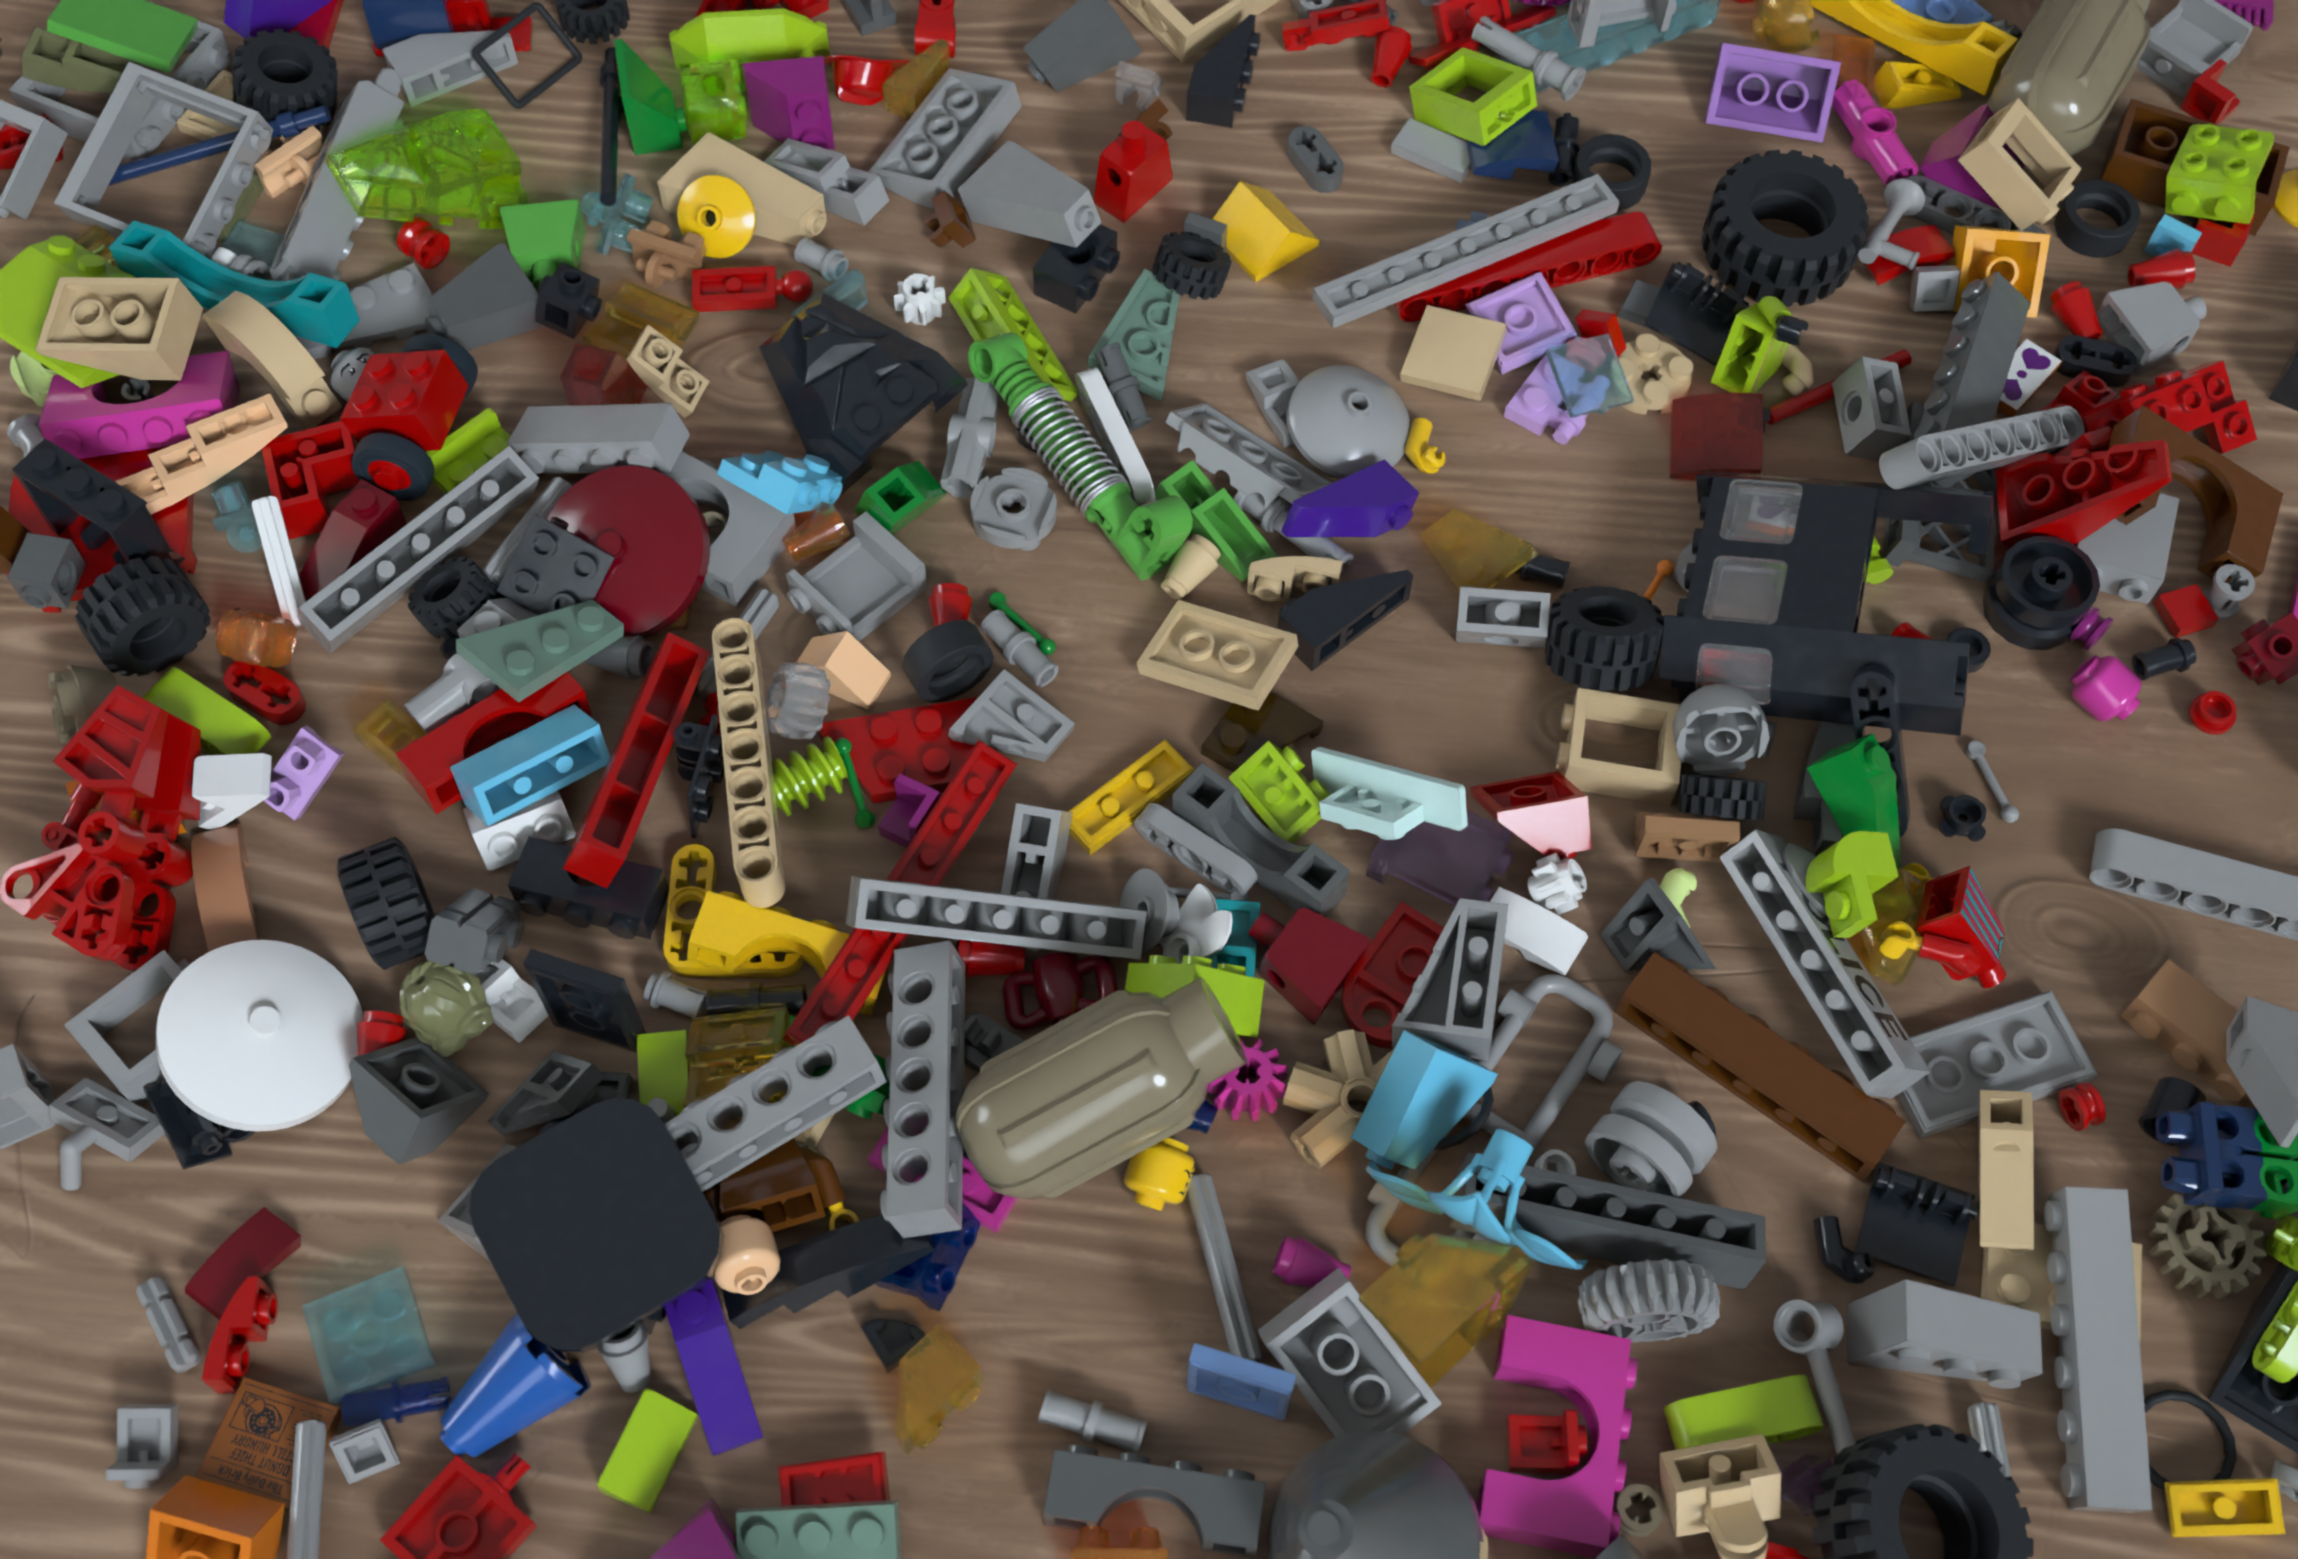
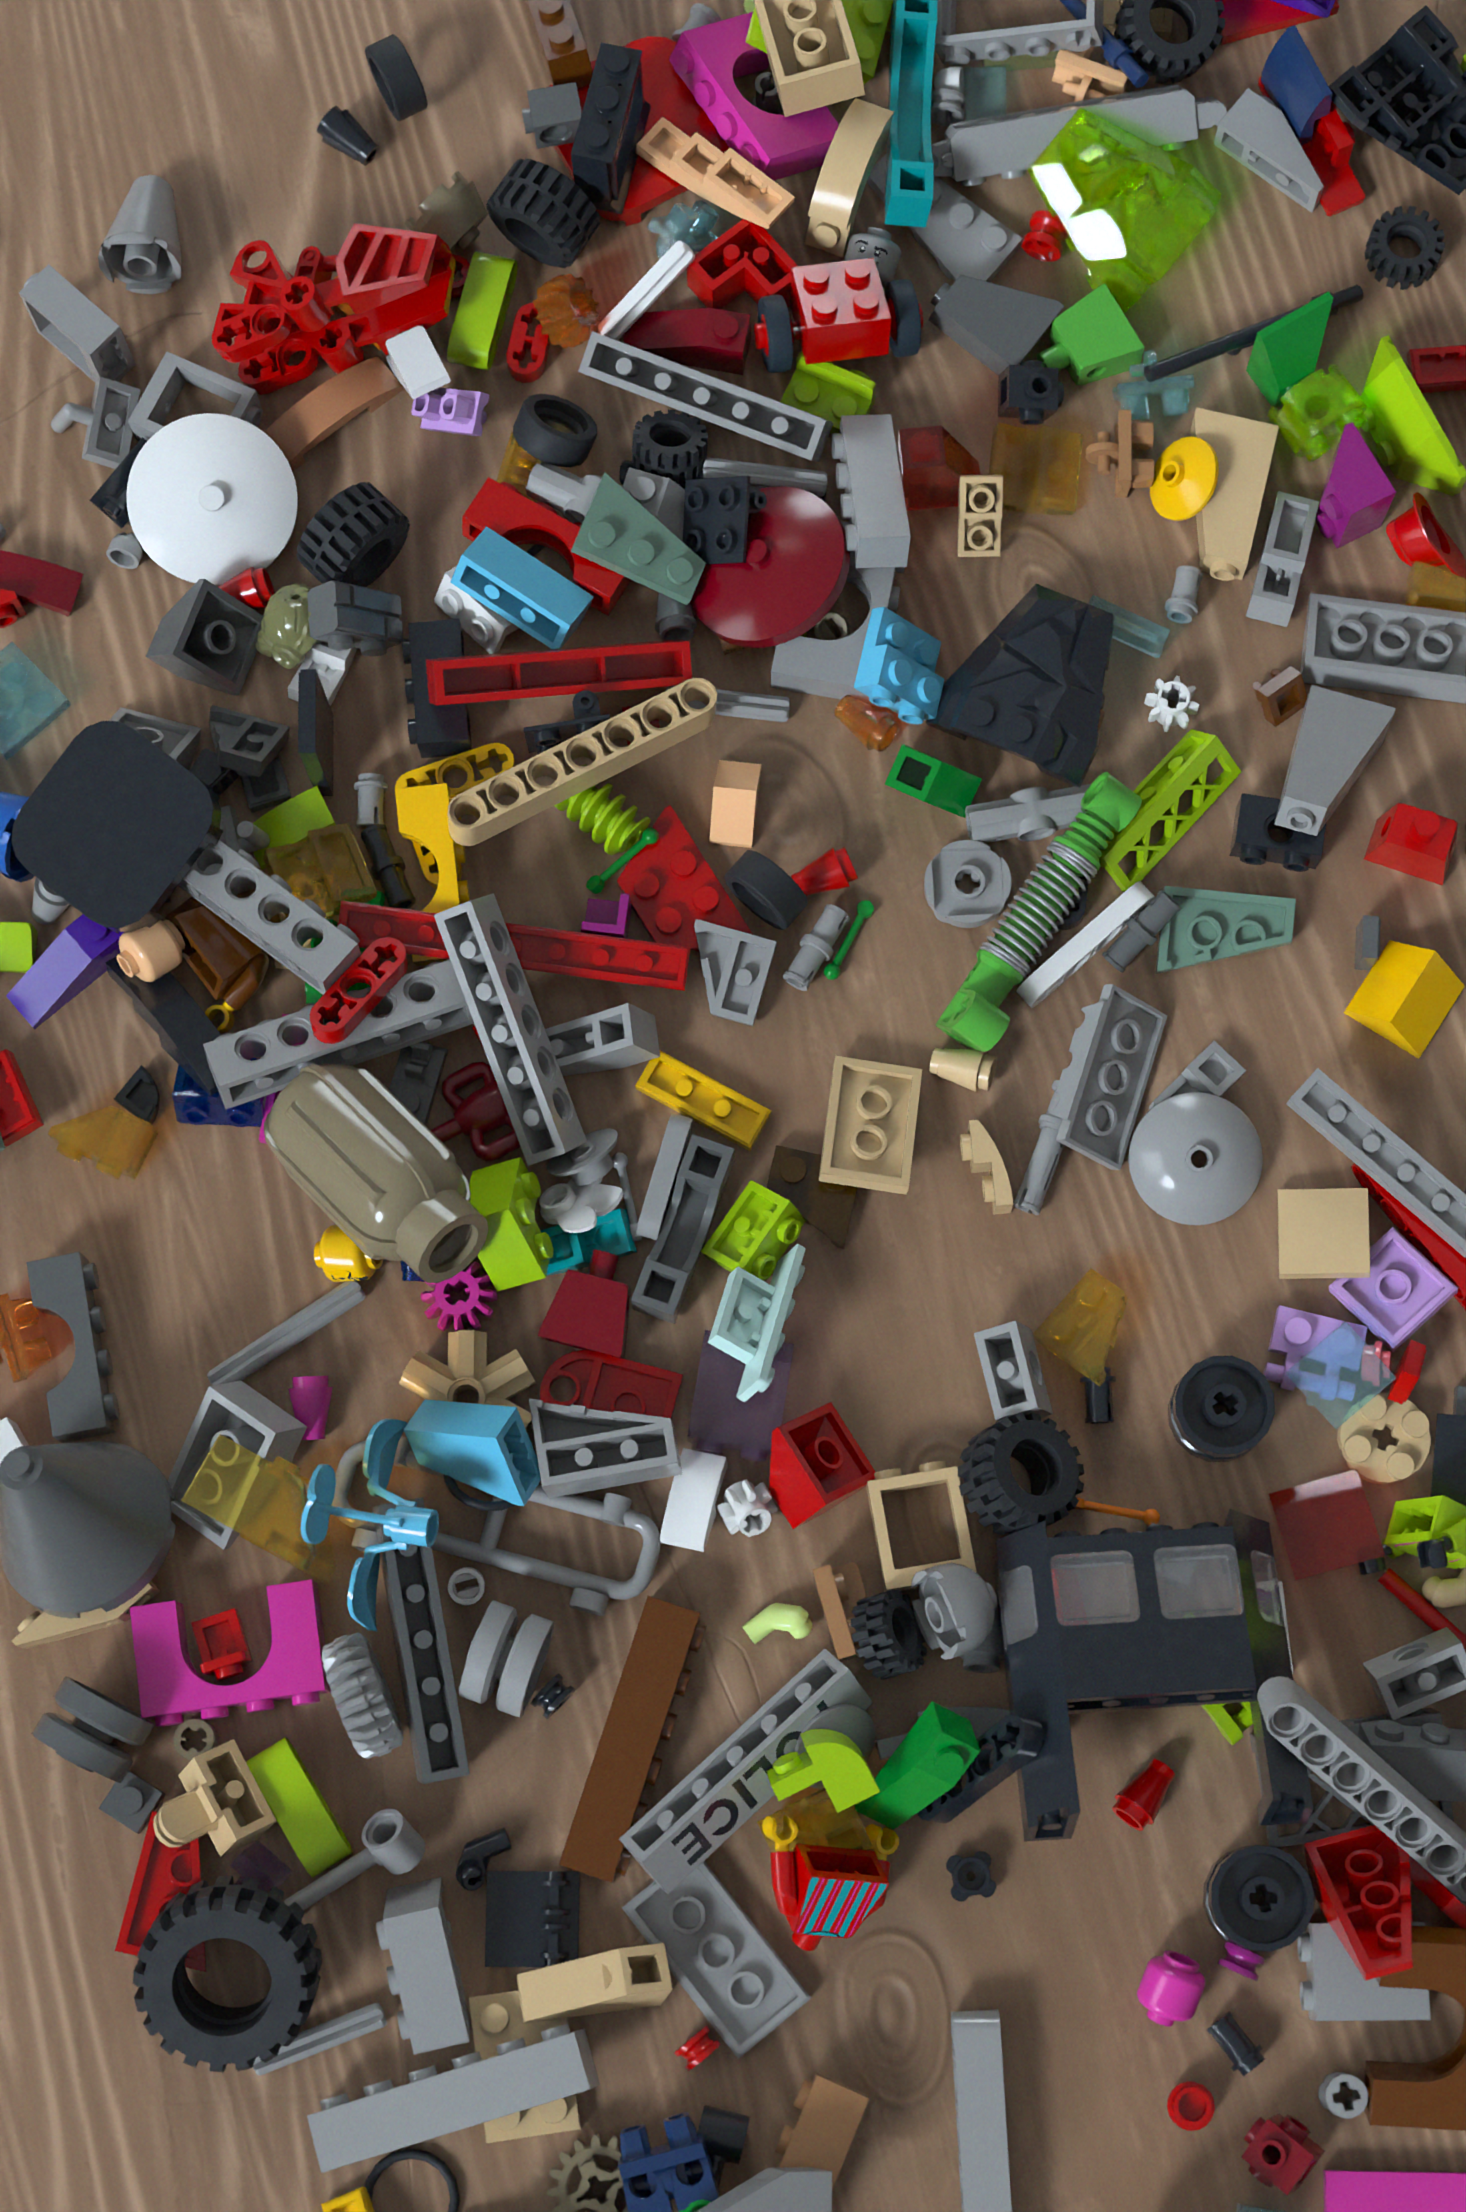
camera: 75 degrees right, 15 degrees up
(271, 1159) = (125, 550): none -> light grey hinge
(377, 687) = (555, 430): none -> black tyre
(505, 29) = (1320, 185): black piece -> none
(747, 288) = (1119, 542): red plate -> none
(797, 700) = (676, 778): clear gear -> none
(859, 582) = (826, 779): light grey panel -> none
(894, 1061) = (356, 1009): none -> red beam
(1092, 1421) = (122, 1275): light grey pin -> none
(1191, 265) = (1338, 942): black tyre -> none
(1217, 519) = (1024, 1072): bright green slope -> none
(1239, 1382) = (180, 1377): medium blue tile -> none
(1339, 613) = (958, 1216): black slope -> none
(1354, 506) = (1089, 1199): dark purple slope -> none
(1419, 451) = (1193, 1238): yellow arm -> none
(1589, 474) = (1236, 1387): none -> black wheel
(1653, 925) = (731, 1612): dark grey slope -> none
(1976, 751) = (1056, 1875): light grey hinge -> none
(1979, 646) = (1172, 1840): black tile -> none
(2185, 610) = (1310, 2058): red tile -> none

